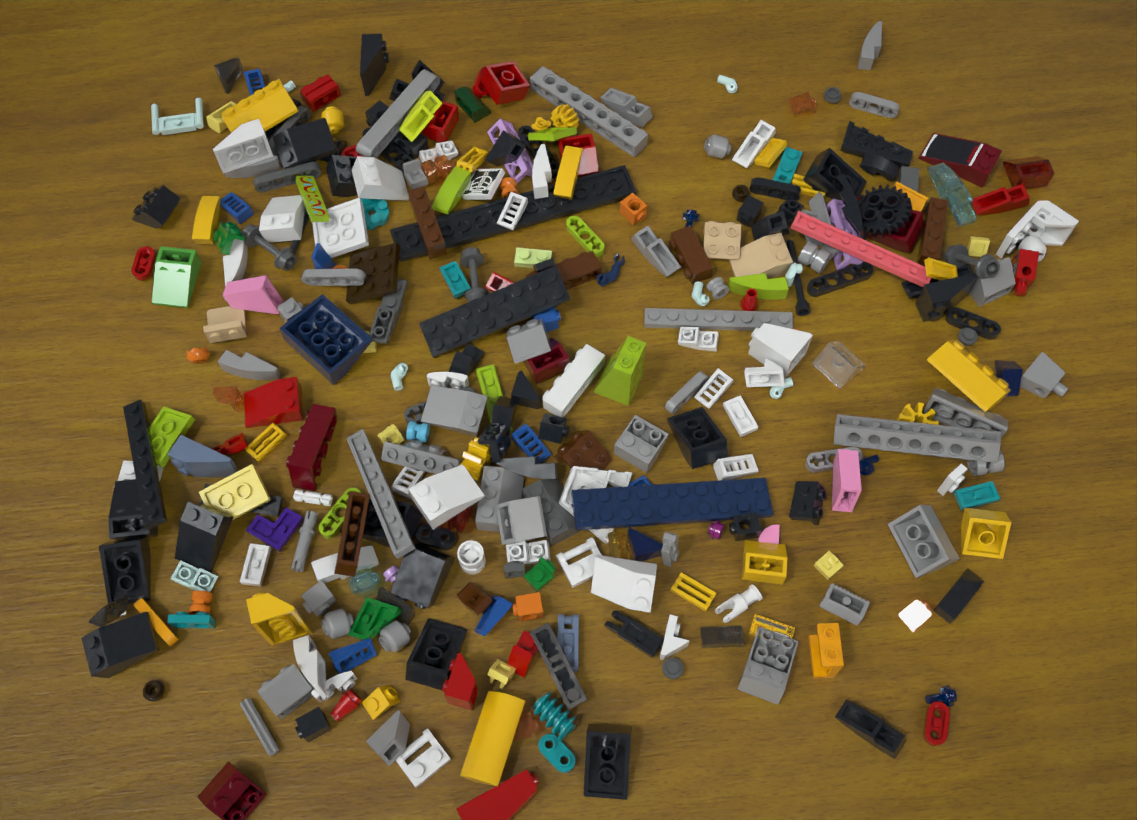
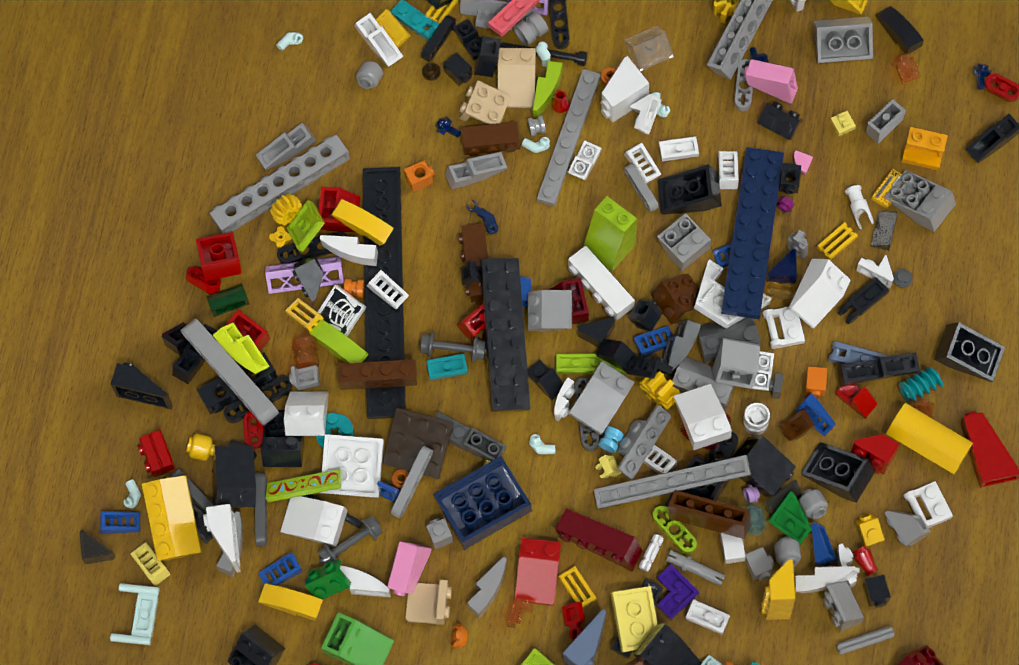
camera: 70 degrees left, 5 degrees up
(443, 148) = (281, 349): white slope -> none
(501, 672) = (871, 419): light yellow tile -> none
(528, 257) = (443, 287): yellowish green plate -> none
(540, 574) = (786, 364): green bracket -> none
(555, 753) = (952, 392): teal plate -> none
(581, 229) = (432, 238): lime beam -> none
(764, 562) = (827, 172): yellow slope -> none

